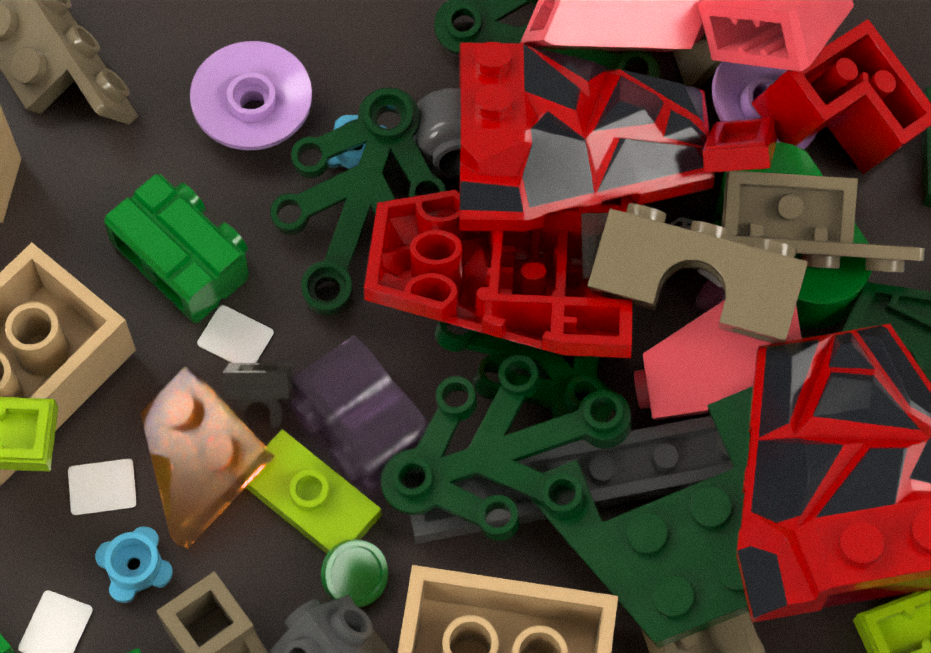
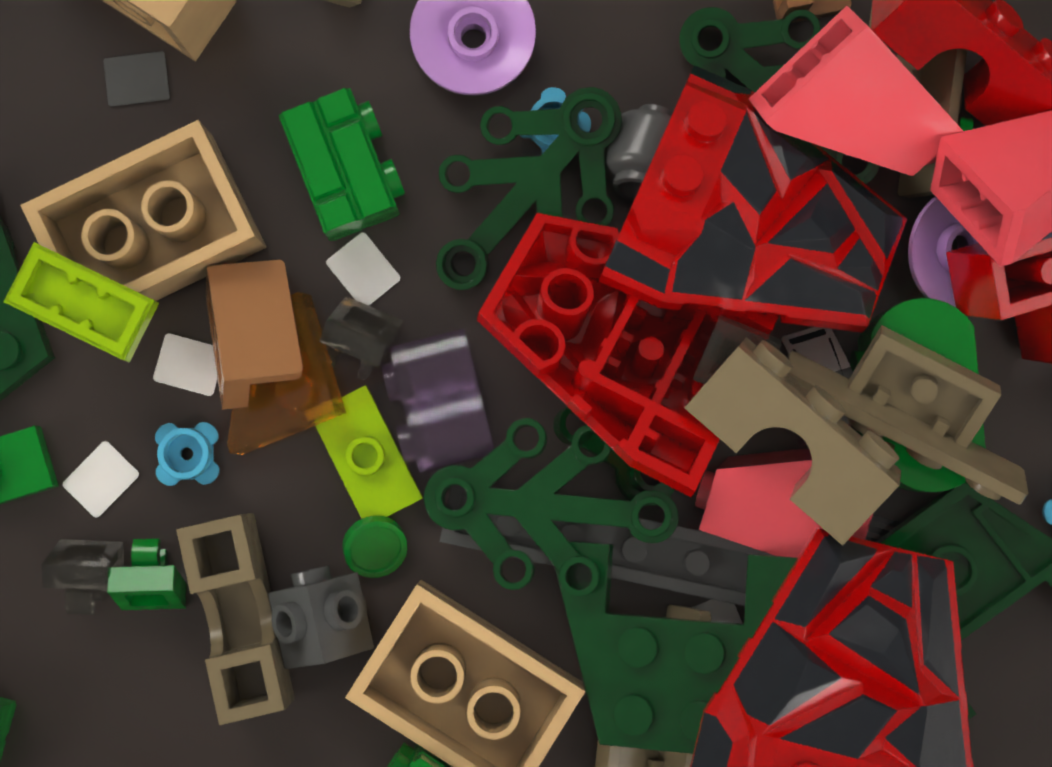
camera: 20 degrees right, 20 degrees up
(149, 412) = (251, 327): none -> medium nougat panel
(740, 145) = (907, 307): red tile -> none

